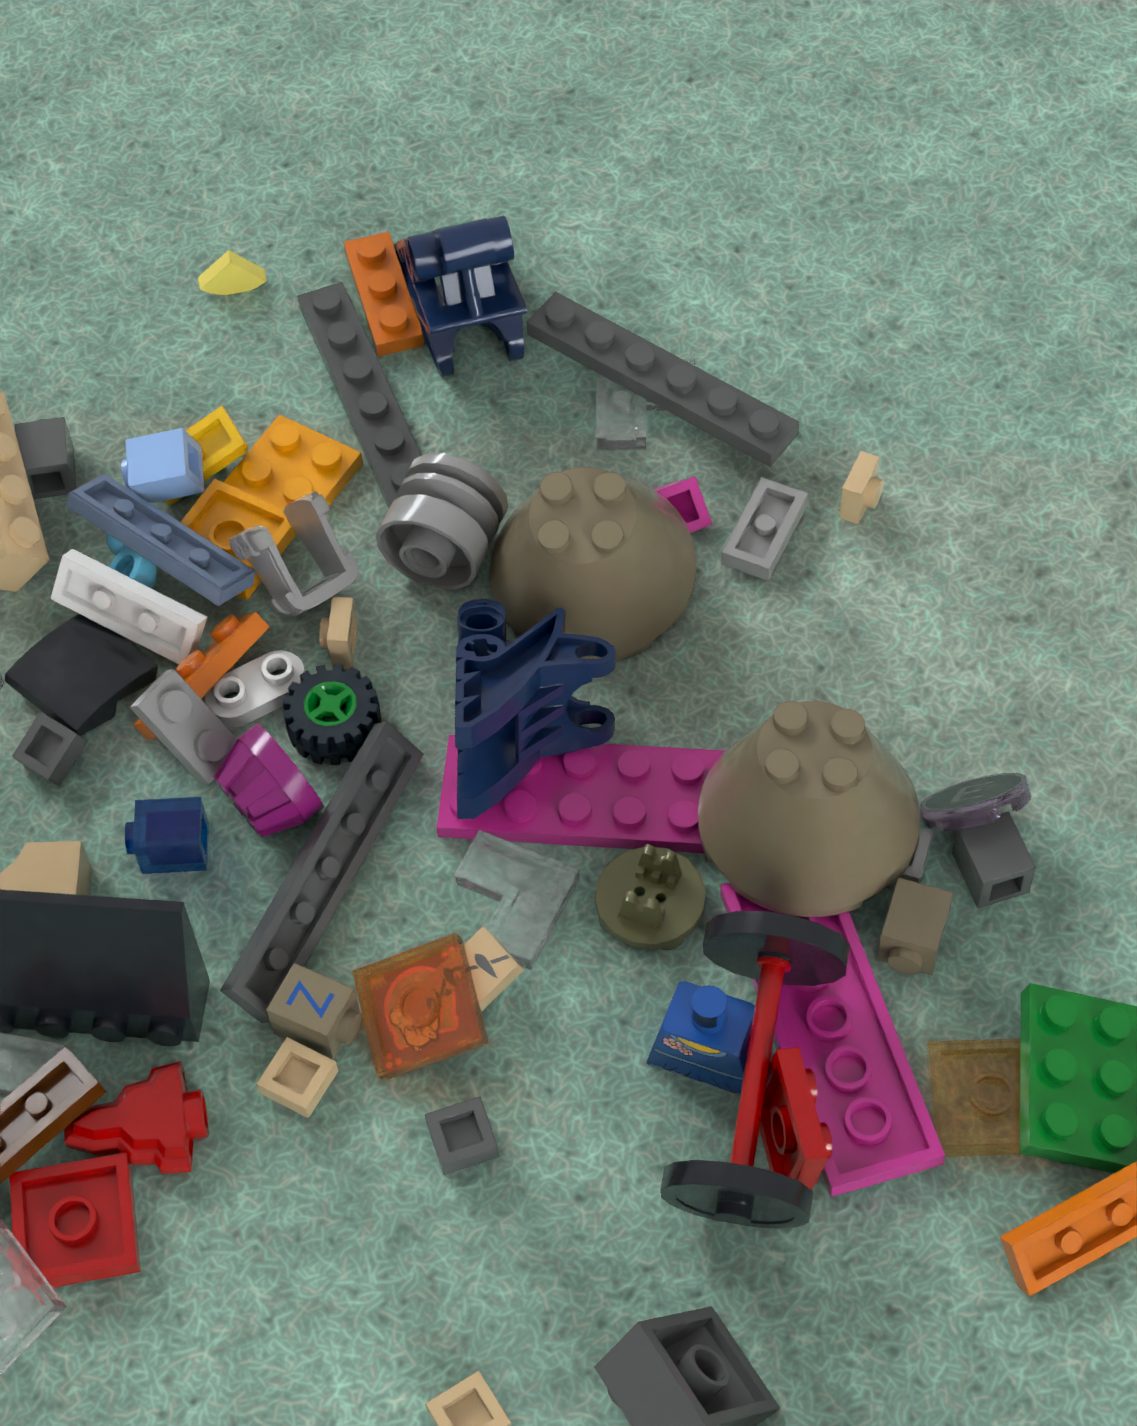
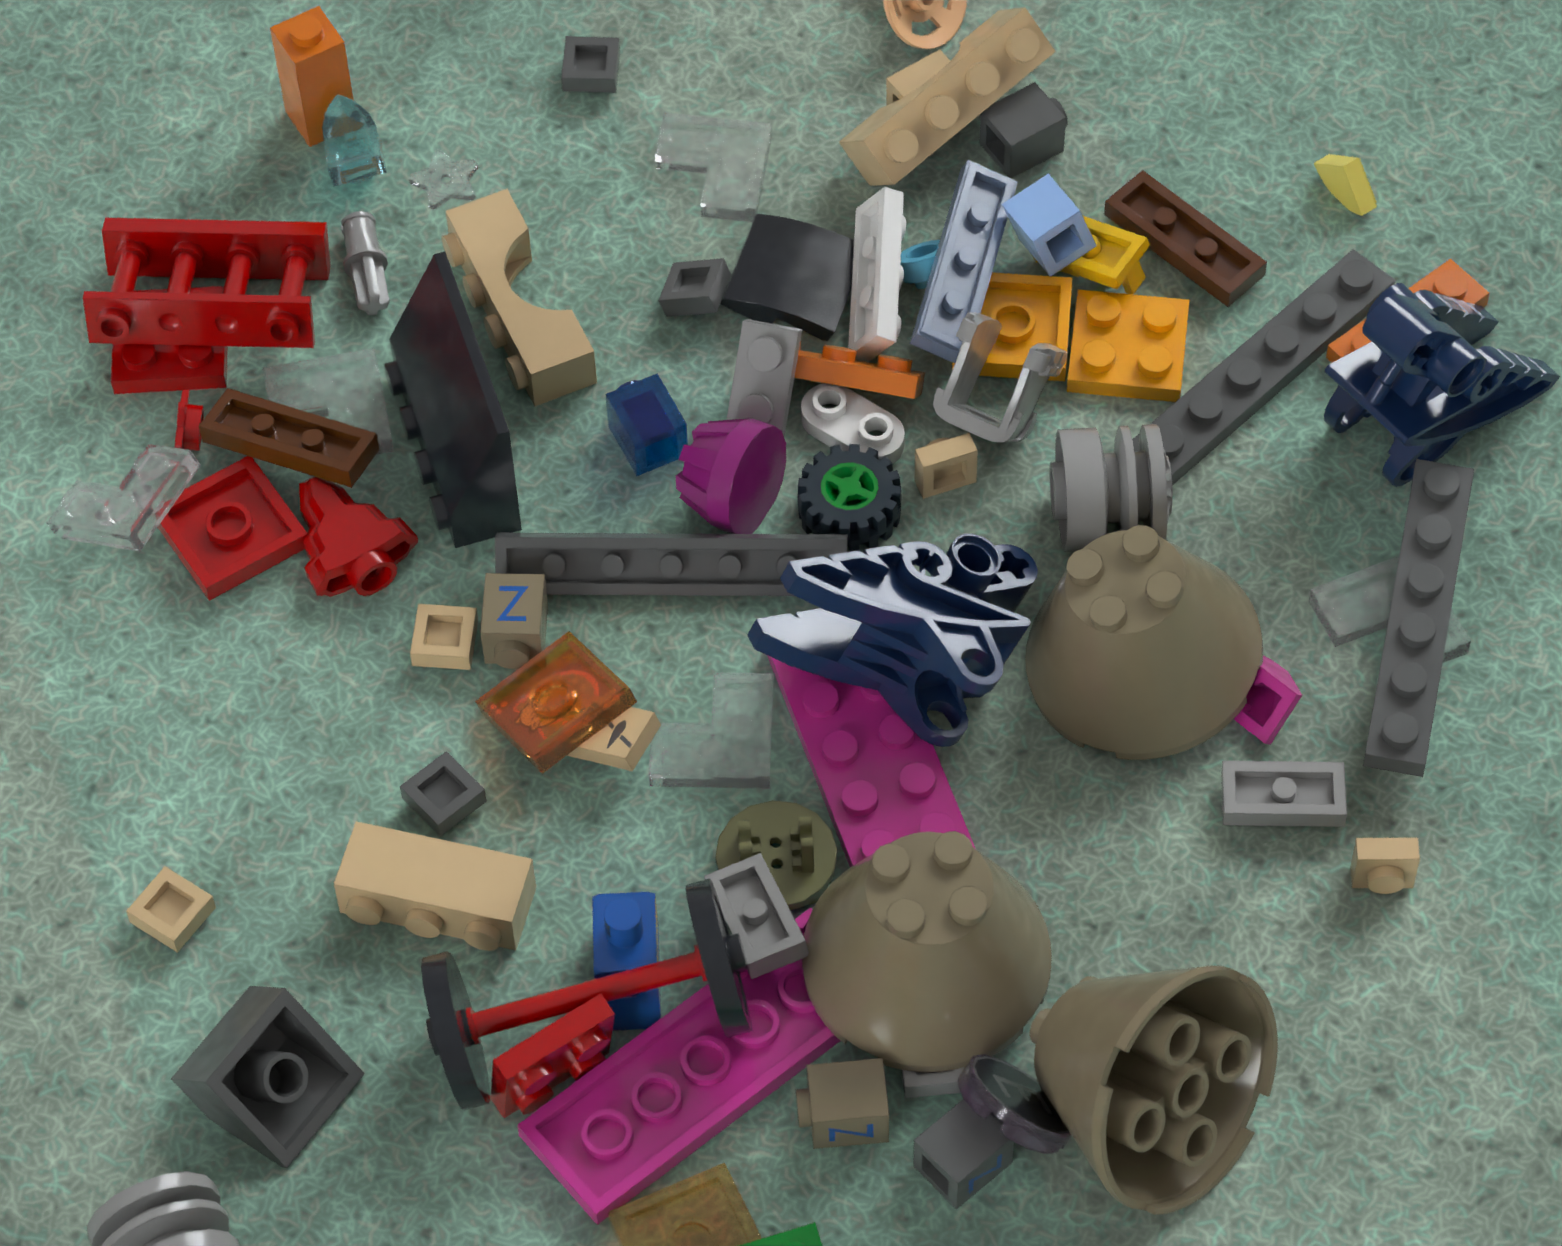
camera: 65 degrees right, 0 degrees up
(235, 387) = (1186, 238): none -> reddish brown plate
(558, 1174) = (435, 887): none -> tan brick
(687, 914) = (759, 915): none -> light grey plate
(994, 698) = (1158, 1077): none -> dark tan cone

